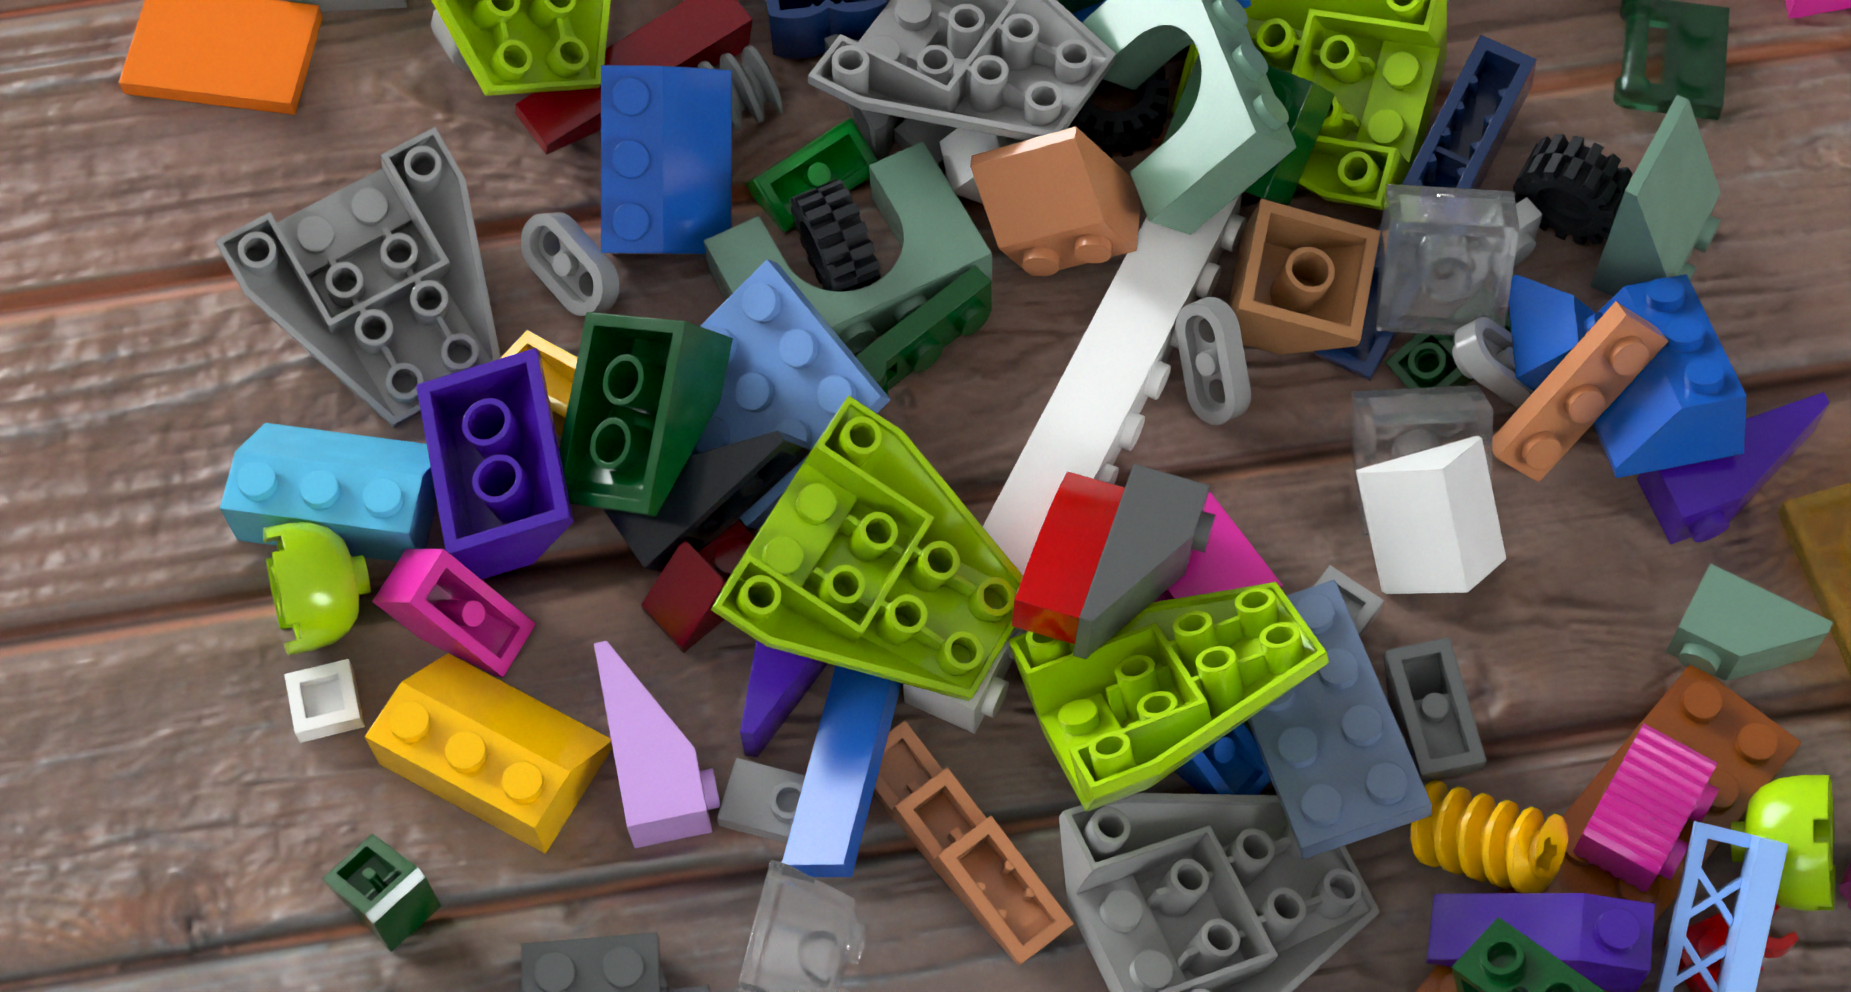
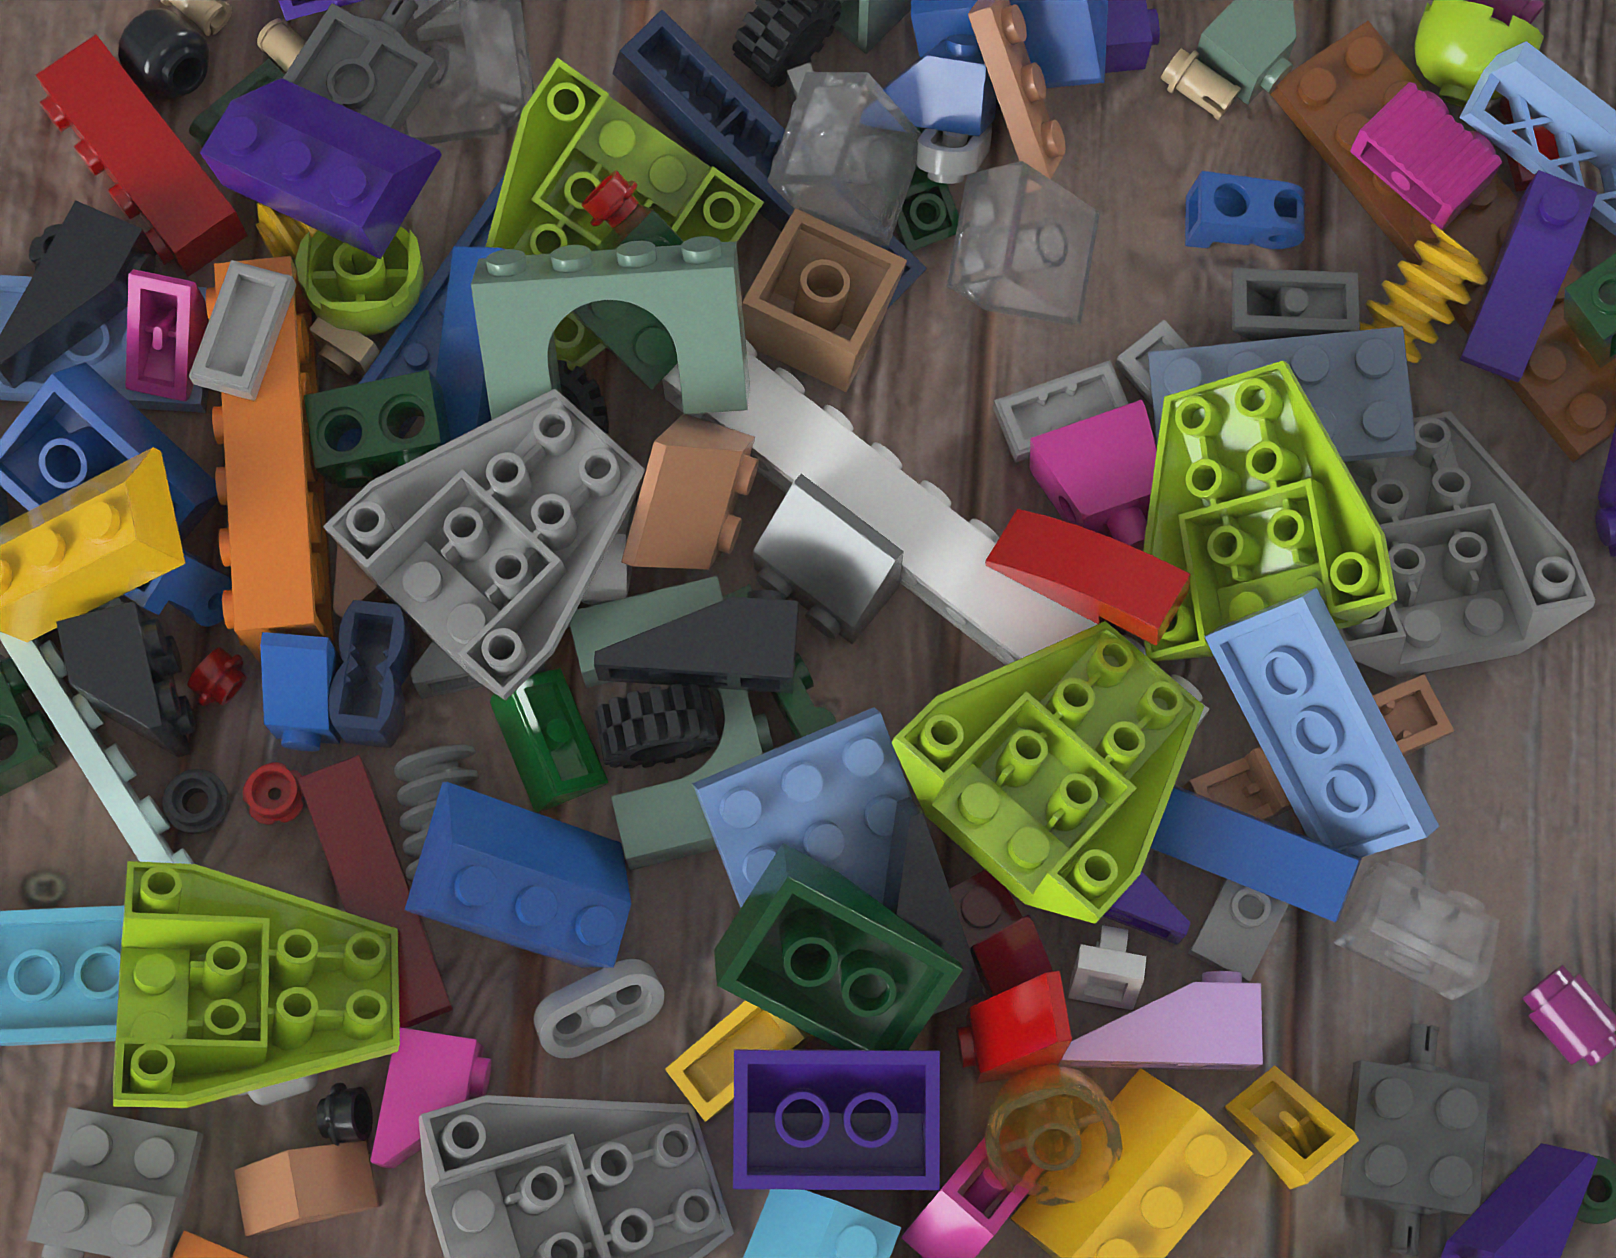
camera: 80 degrees left, 10 degrees up
(374, 90) = (306, 1187): none -> nougat slope
(437, 97) = (345, 1115): none -> black plate
(480, 139) = (423, 1077): none -> dark pink slope
(523, 651) = (1052, 1134): none -> clear yellow cylinder
(575, 881) = (1290, 1127): none -> yellow slope
(614, 604) = (1016, 1030): none -> red slope
(697, 683) = (1107, 972): none -> white tile
(917, 257) = (721, 646): none -> black slope
(964, 794) = (1321, 727): none -> medium blue plate
(1031, 345) = (827, 561): none -> dark grey slope
(1144, 553) = (1094, 487): dark grey slope -> none
(1213, 360) = (886, 400): light grey plate -> none
(1268, 527) = (1057, 405): none -> light grey plate
(1331, 70) = (611, 200): none -> red plate
(1433, 519) = (1102, 254): white slope -> none
(1531, 657) = (1244, 212): none -> blue leg
(1669, 577) = (1199, 83): none -> tan pin

